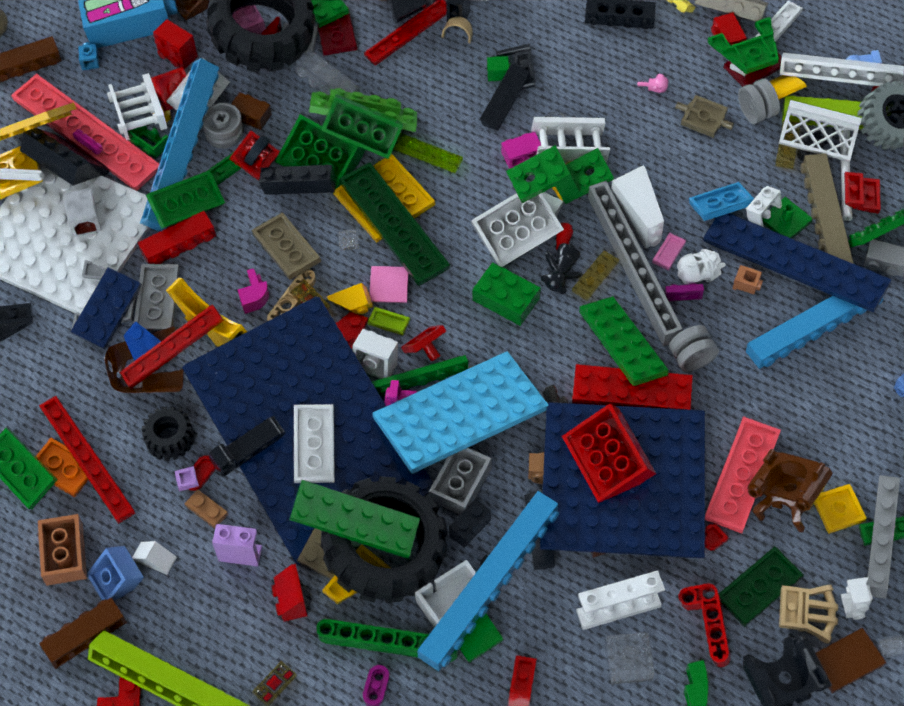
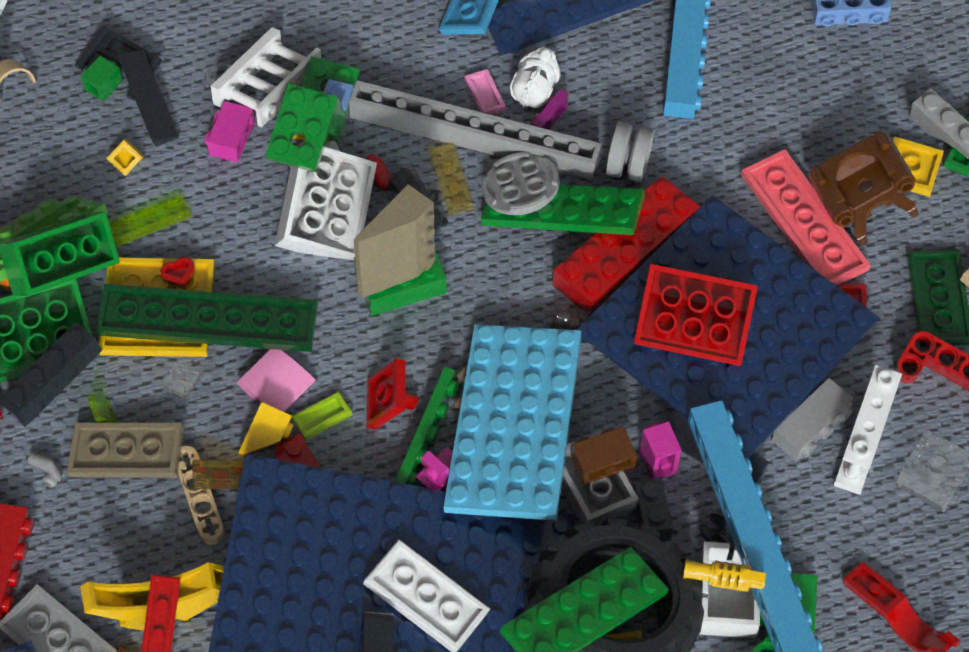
camera: 55 degrees left, 0 degrees up
(249, 217) = (47, 464): none -> light grey arm
(254, 296) = (159, 528): dark pink brick -> none
(300, 219) = (102, 409): none -> clear neon green slope
(376, 354) = (365, 451): white brick -> none
(410, 190) = (178, 272): none -> red tile
(442, 578) = (725, 575): none -> yellow hinge
(461, 115) = (125, 156): none -> yellow slope
(472, 468) = (603, 455): none -> reddish brown brick
(499, 267) = (396, 243): none -> dark tan slope
(508, 499) = (660, 450): none -> dark pink brick
(536, 467) = (638, 398): medium nougat brick -> none
(583, 177) = (342, 90): none -> medium blue plate
(604, 568) = (813, 420): none -> light grey brick
(618, 308) = (520, 184): none -> light grey tile
(639, 206) = (417, 70): white slope -> none
(748, 280) = (587, 50): nougat brick -> none

